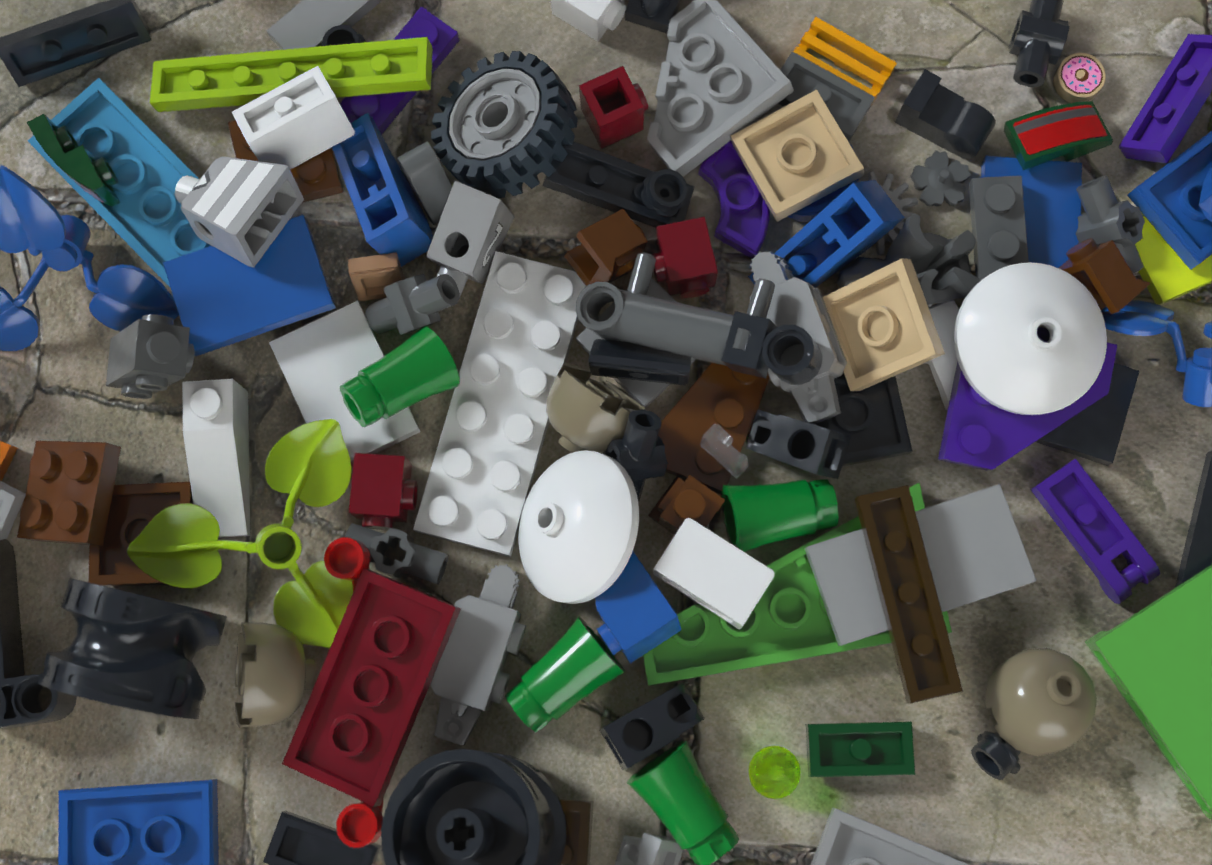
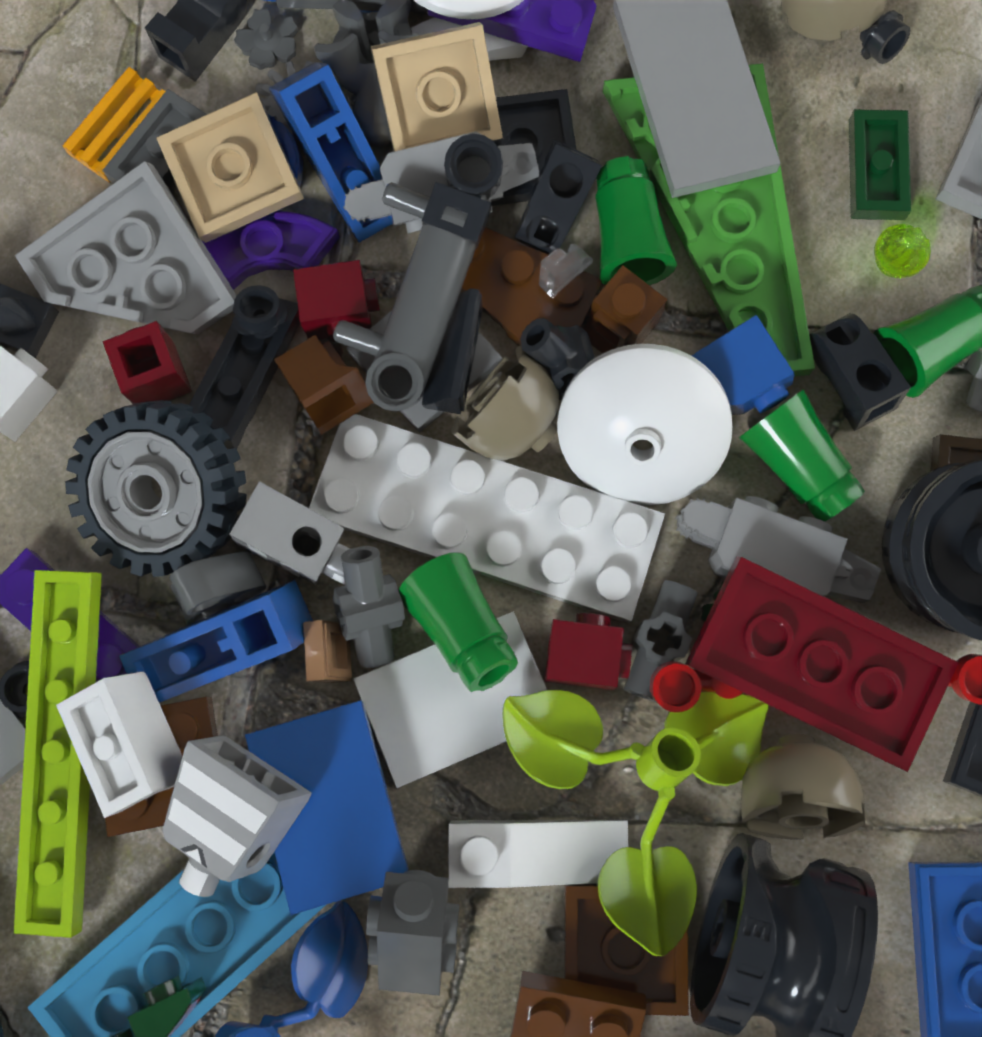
camera: 90 degrees left, 0 degrees up
(713, 573) = (705, 280): white panel -> none
(908, 594) = (733, 86): dark brown plate -> none

